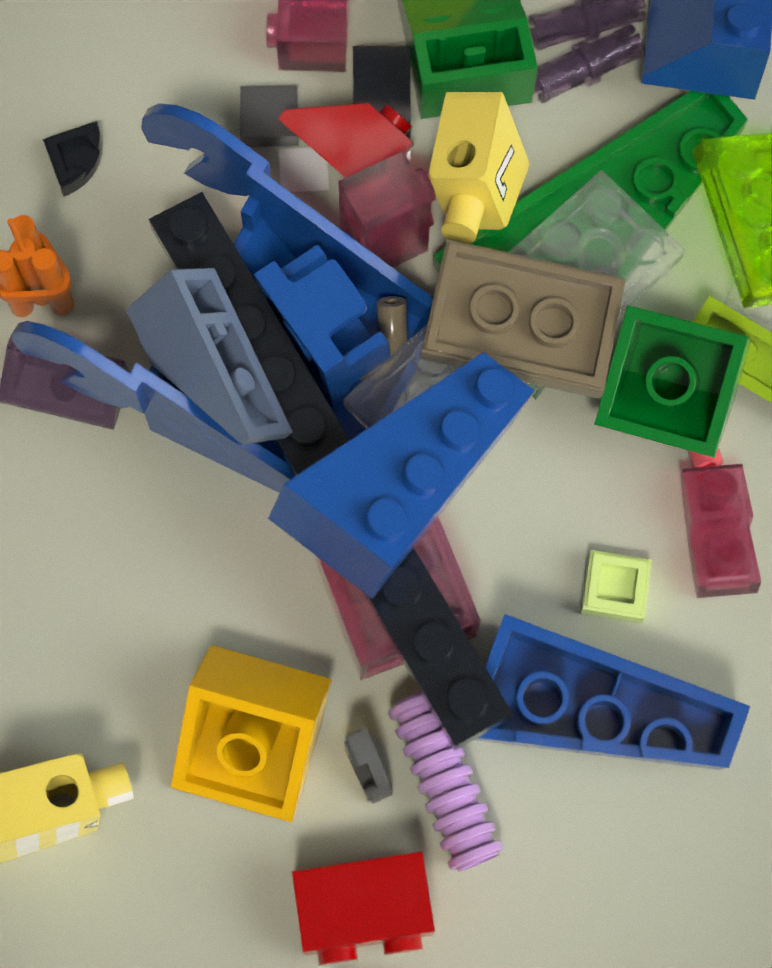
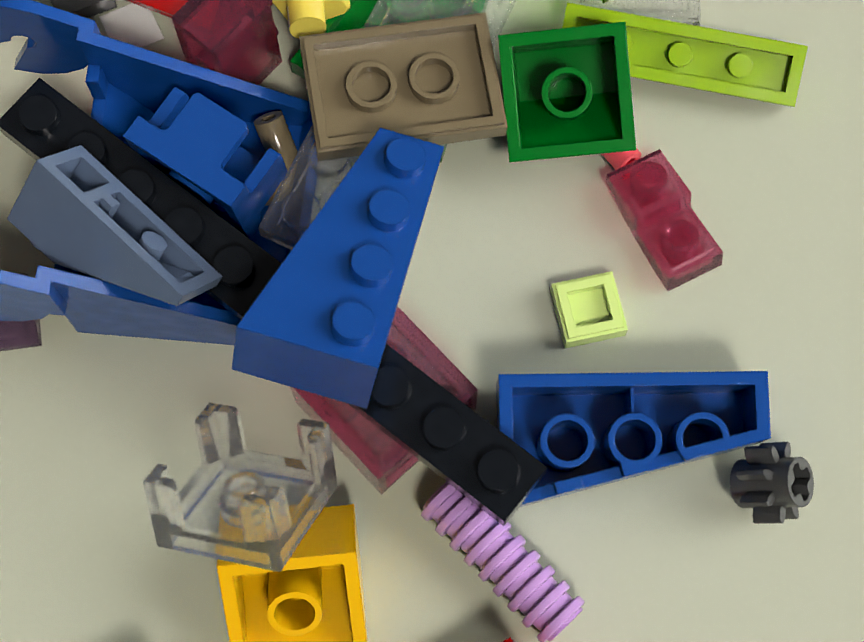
camera: 20 degrees left, 0 degrees up
(234, 636) = (241, 500): none -> clear panel
(367, 766) = (421, 574): dark grey tile -> none
(717, 809) = (771, 482): none -> dark grey gear

